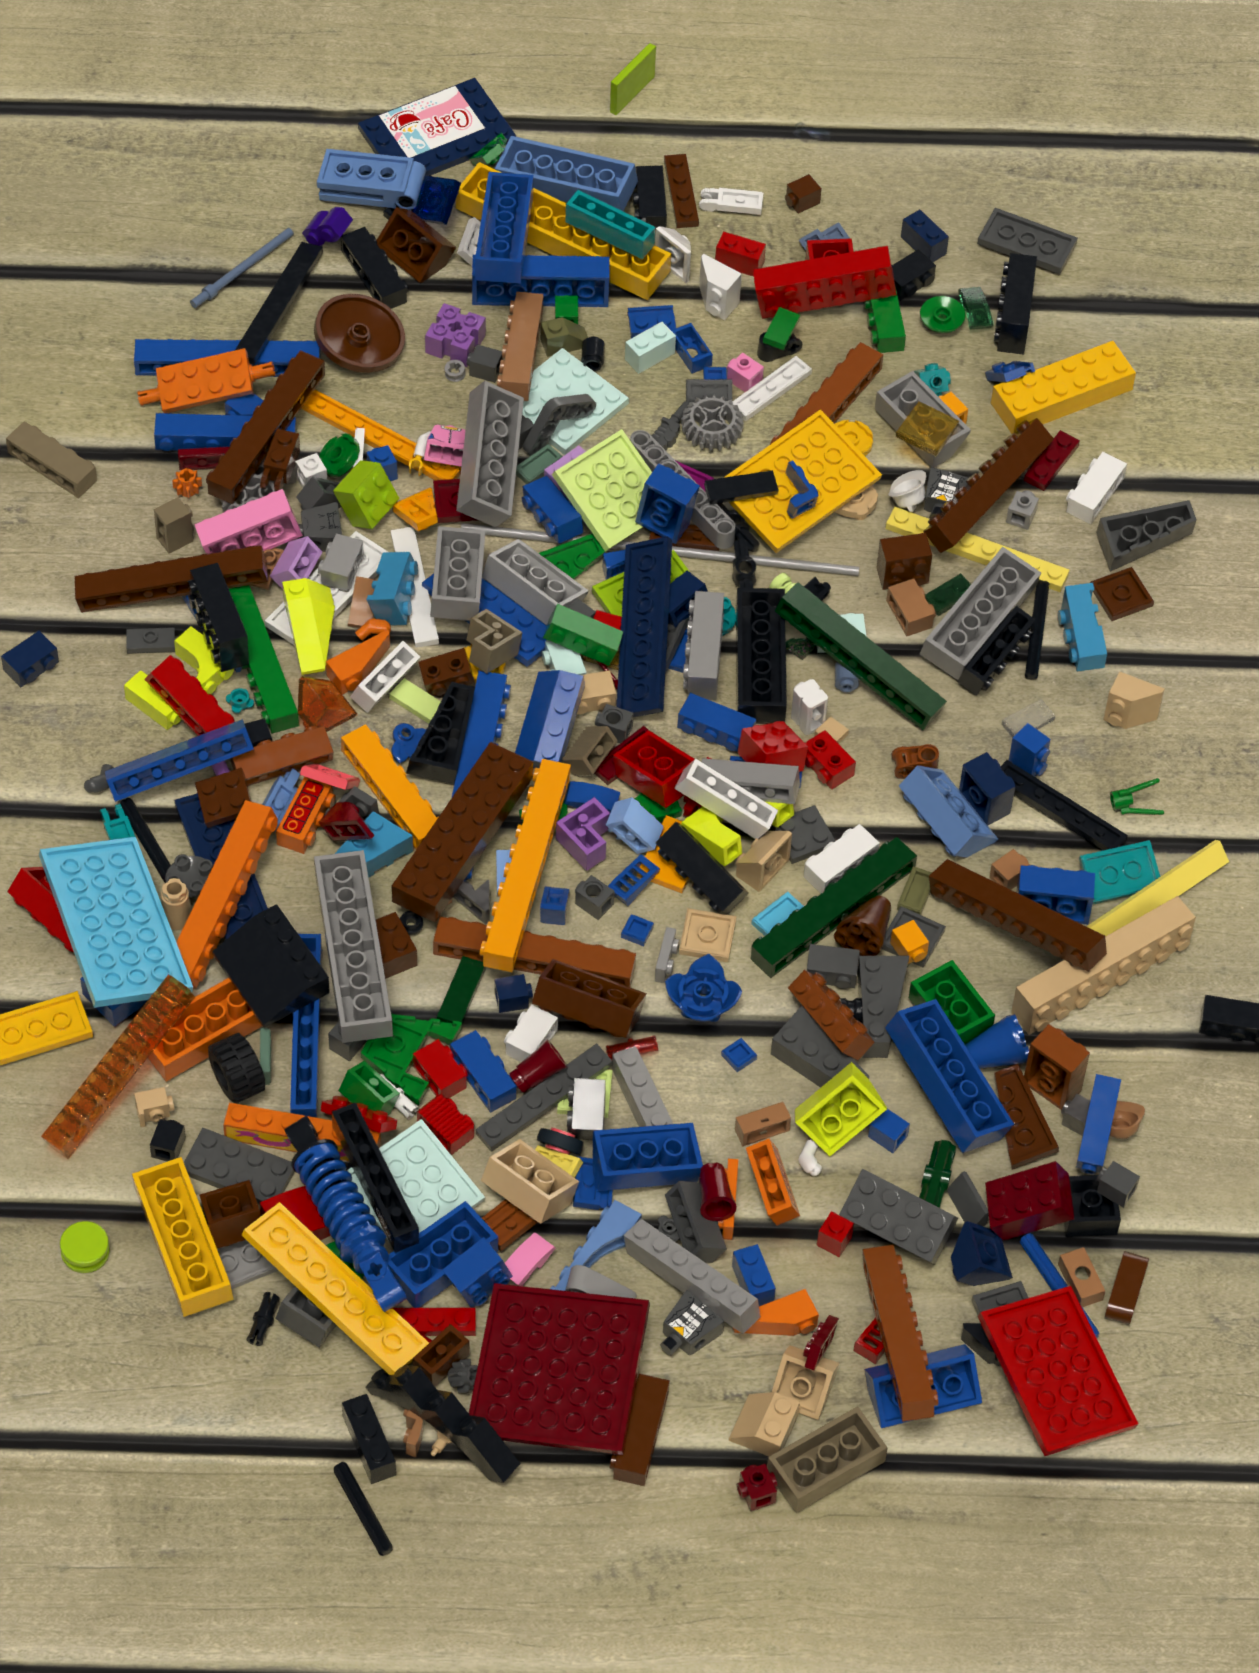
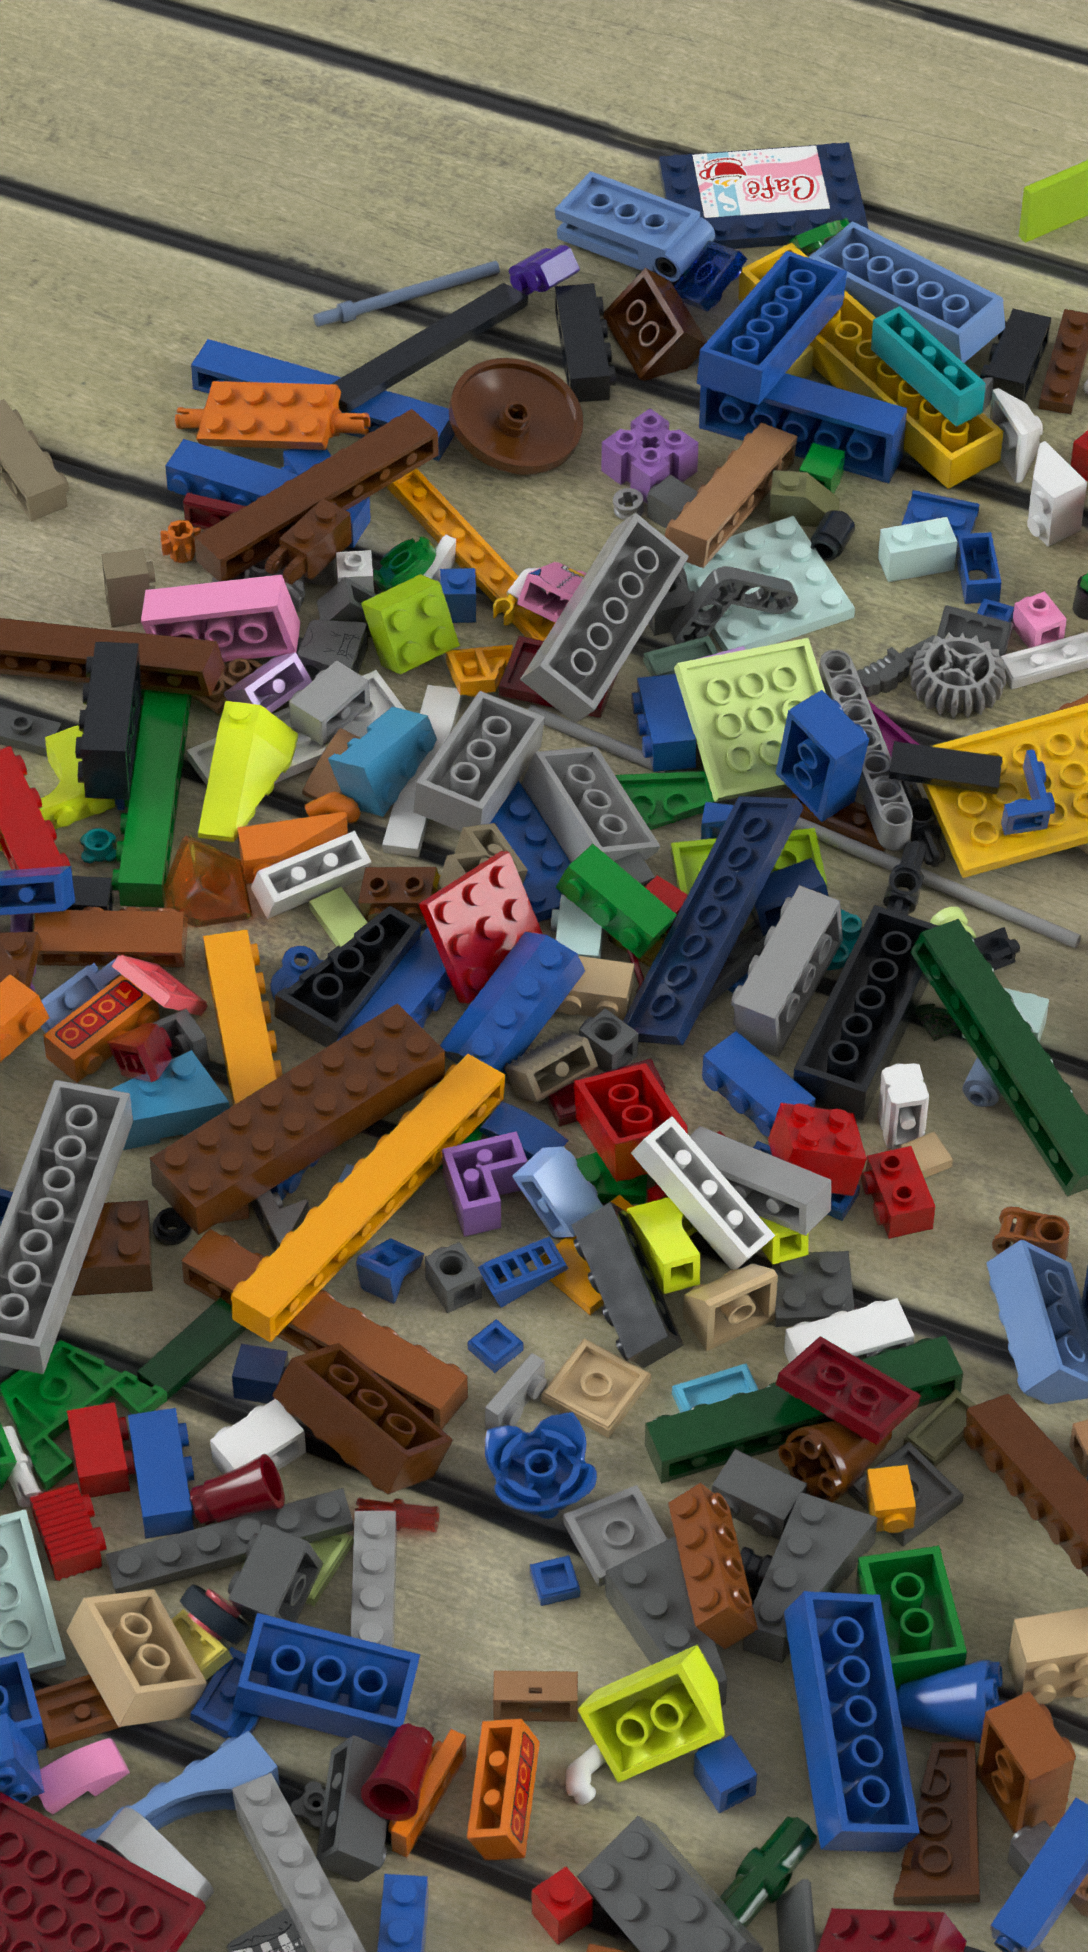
camera: 25 degrees right, 5 degrees down
(510, 675) = (479, 922): none -> red plate
(761, 1016) = (613, 1530): none -> light grey plate
(861, 887) = (848, 1390): none -> dark red plate

